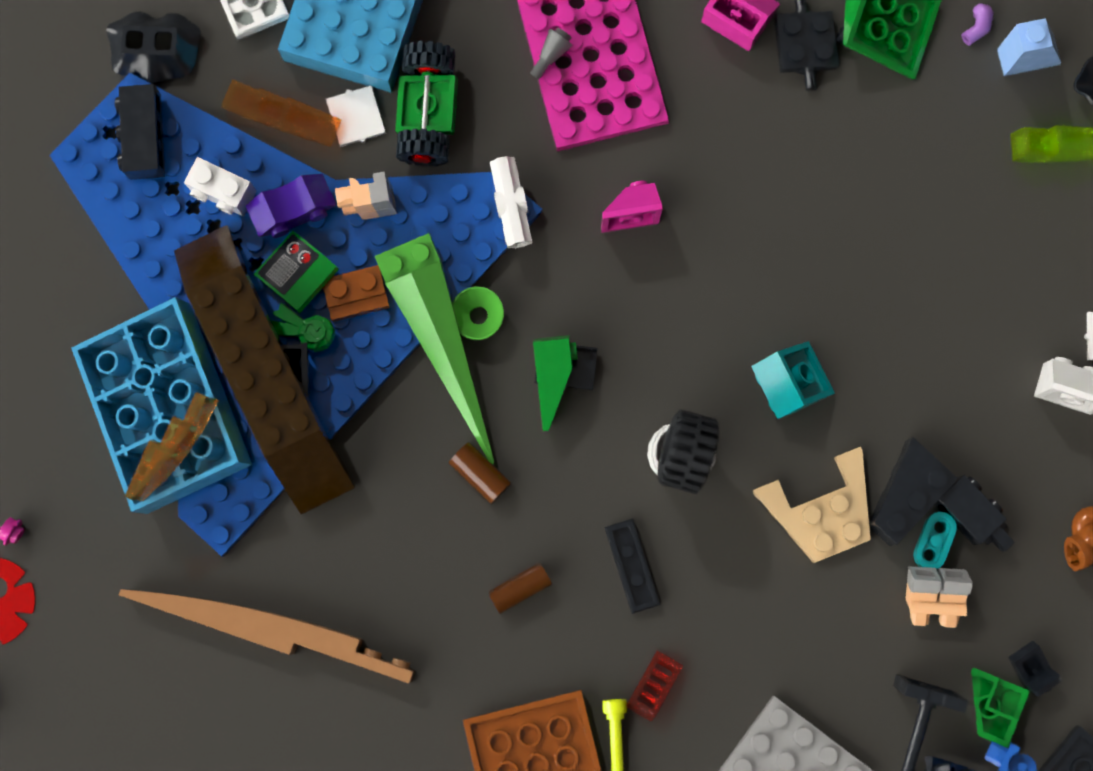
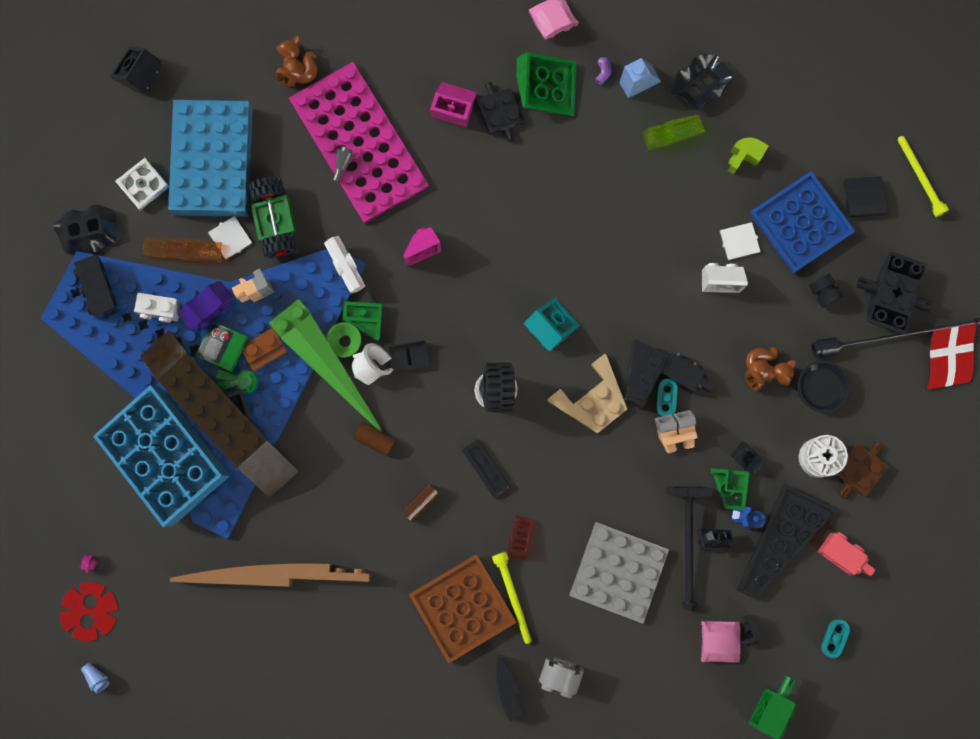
camera: 25 degrees left, 0 degrees up
(164, 457) = (173, 487): clear orange slope -> none
(498, 366) = (364, 366): none -> white helmet
(517, 288) = (364, 317): none -> green wing
(553, 369) = (401, 360): green slope -> none

